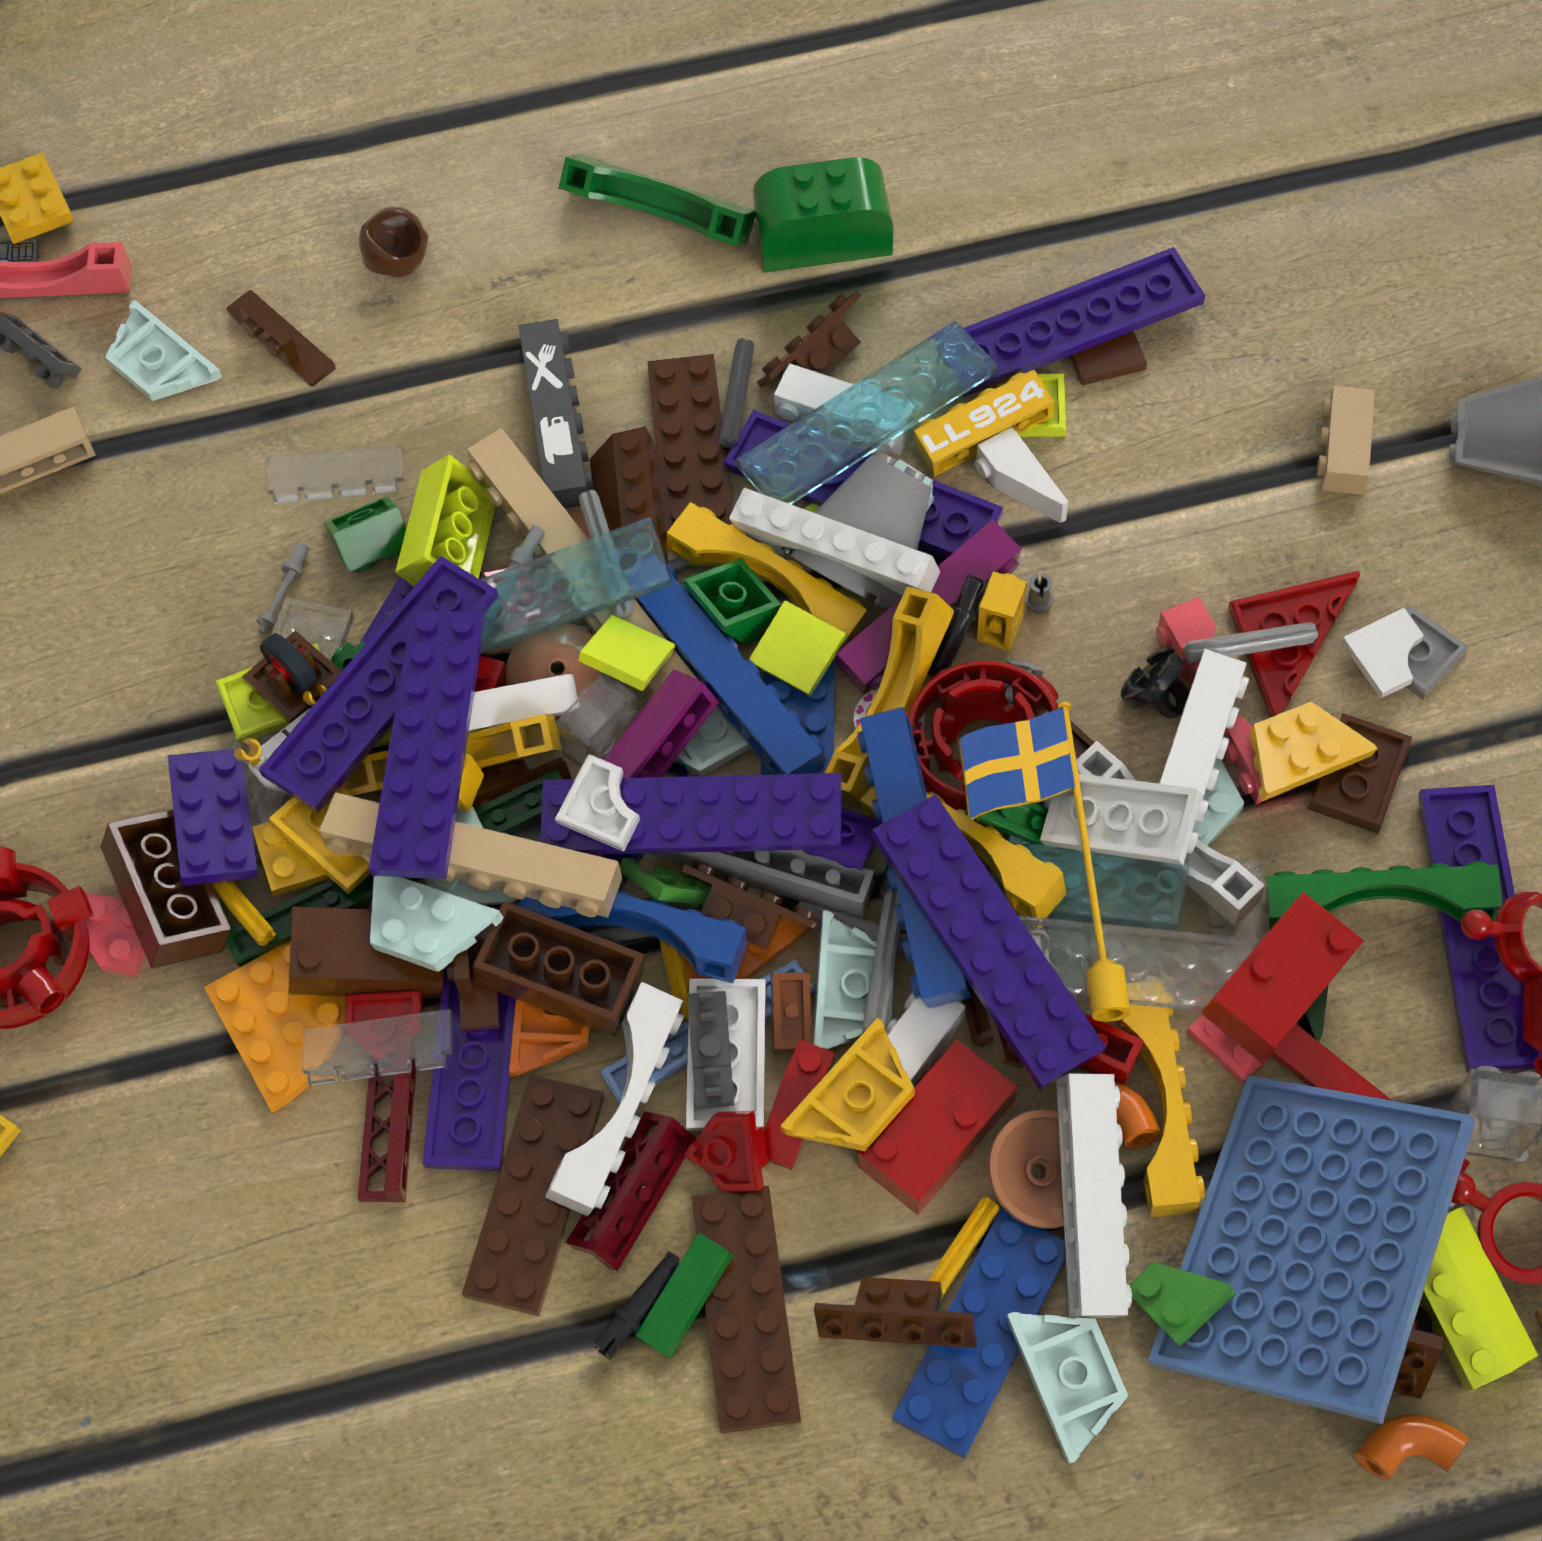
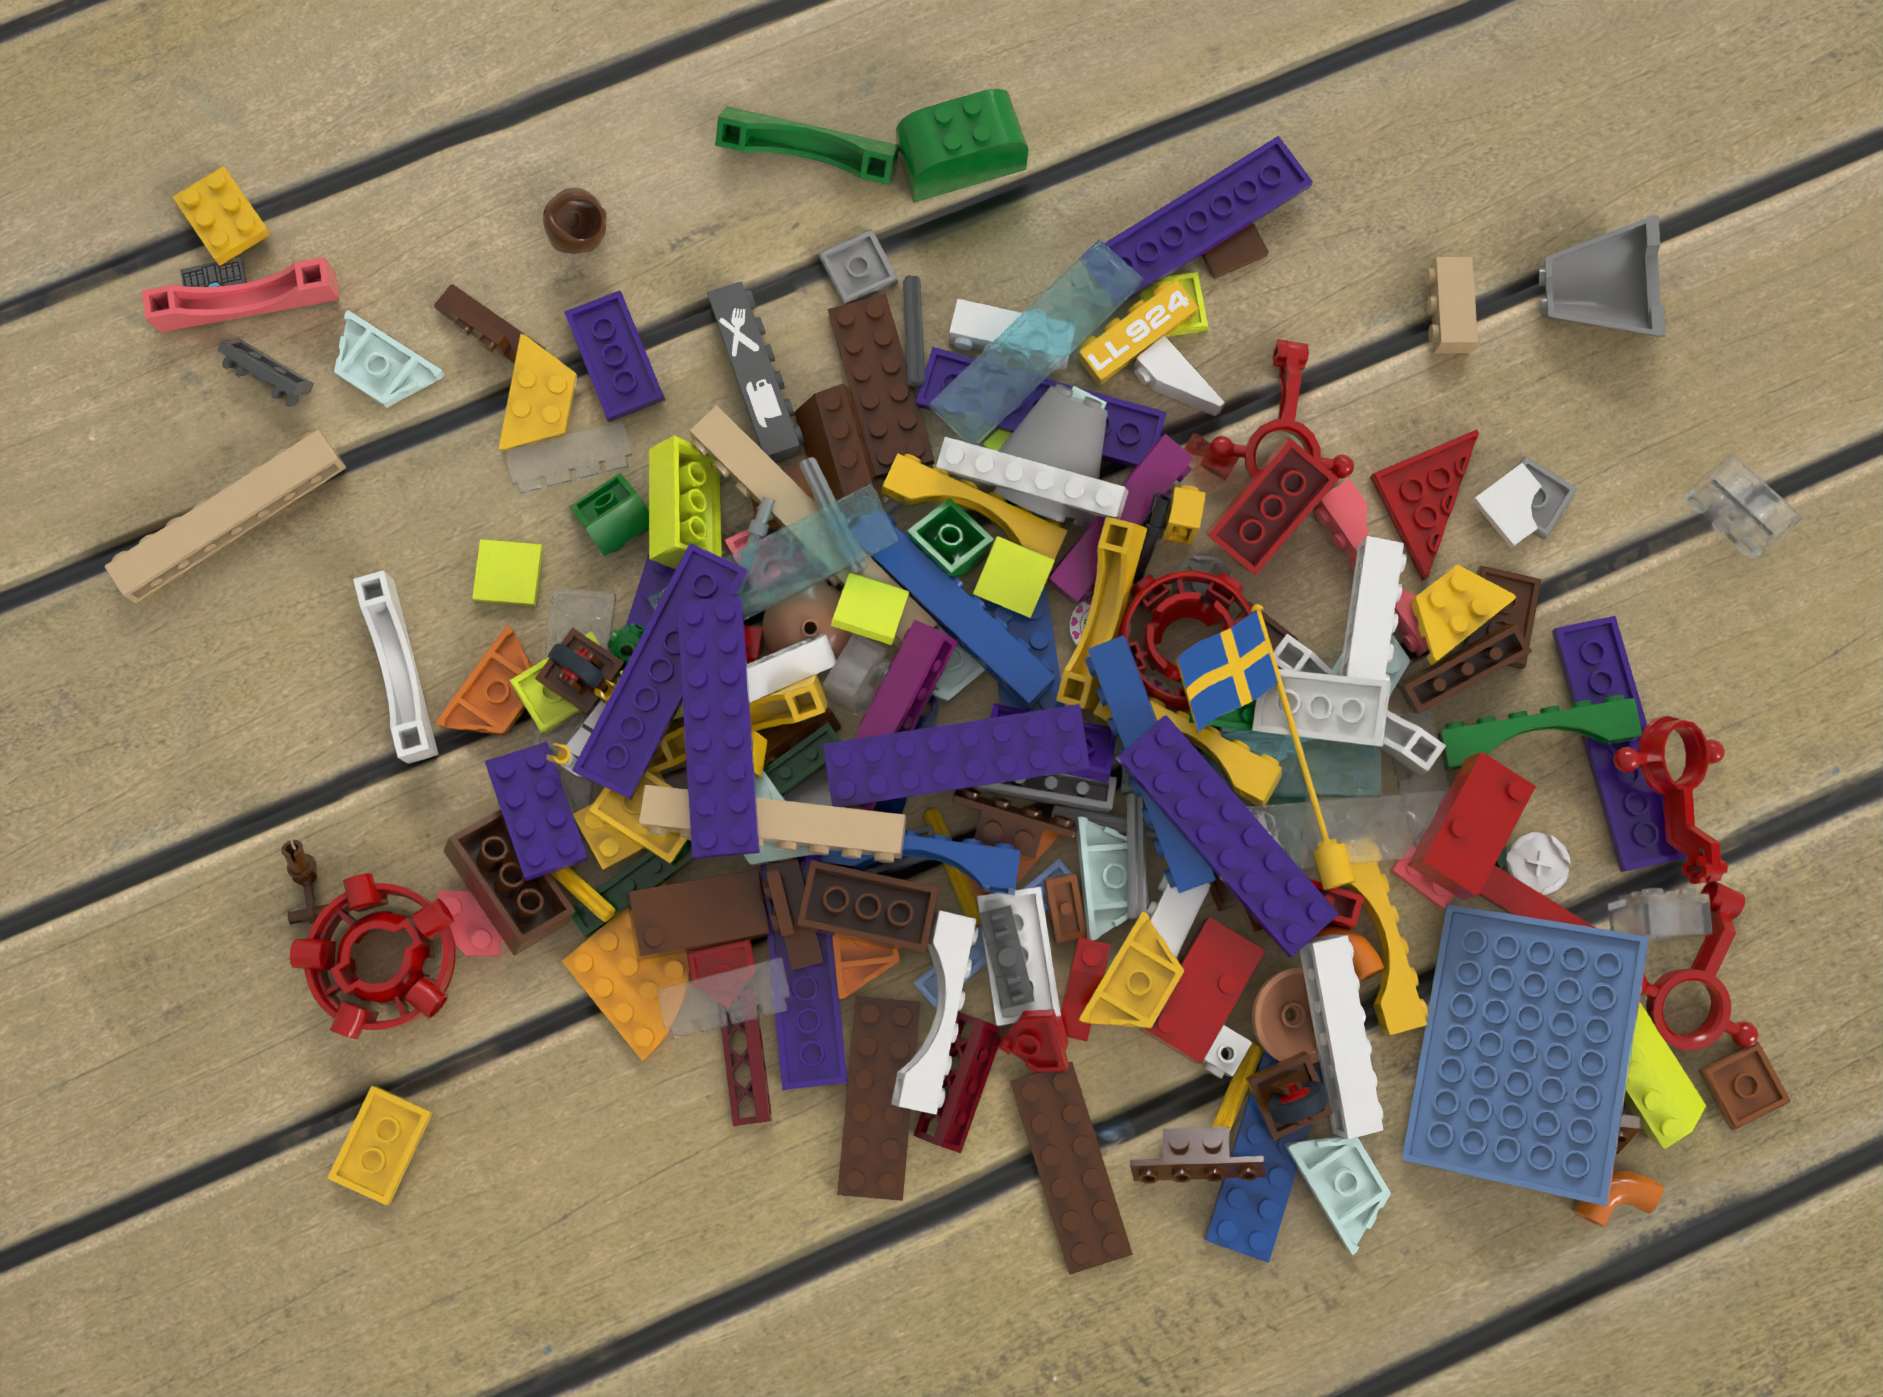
camera: 15 degrees left, 15 degrees up
(98, 699) = (406, 701): none -> white arch
(189, 700) = (487, 697): none -> orange wing
(241, 579) = (507, 572): none -> neon yellow tile
(291, 569) = (550, 557): light grey piece -> none
(314, 409) = (537, 398): none -> yellow wing
(406, 379) = (614, 356): none -> dark purple plate
(424, 922) = (747, 890): light aqua wing -> none
(596, 805) = (875, 764): white tile -> none
(627, 1318) = (981, 1186): black pin -> none
(667, 884) = (941, 813): bright green wing -> none
(684, 1295) = (1021, 1168): green tile -> none
(690, 326) = (858, 268): none -> light grey tile
(822, 347) = (979, 273): reddish brown bracket -> none
(951, 1198) = (1236, 1049): none -> white brick
(1018, 1254) = (1289, 1095): none -> reddish brown plate
(1039, 596) = (1213, 490): flat silver pin -> none
(1051, 559) = (1200, 447): none -> clear red plate
(1102, 609) = (1271, 505): none -> red brick
(1153, 469) = (1291, 359): none -> red piece
(1155, 683) = (1322, 562): black tile -> none
(1179, 1299) = (1420, 1109): bright green wing -> none
(1252, 641) = (1399, 515): light grey axle -> none
(1302, 812) = (1464, 668): none -> reddish brown brick
(1368, 1045) = (1538, 862): none -> white tile

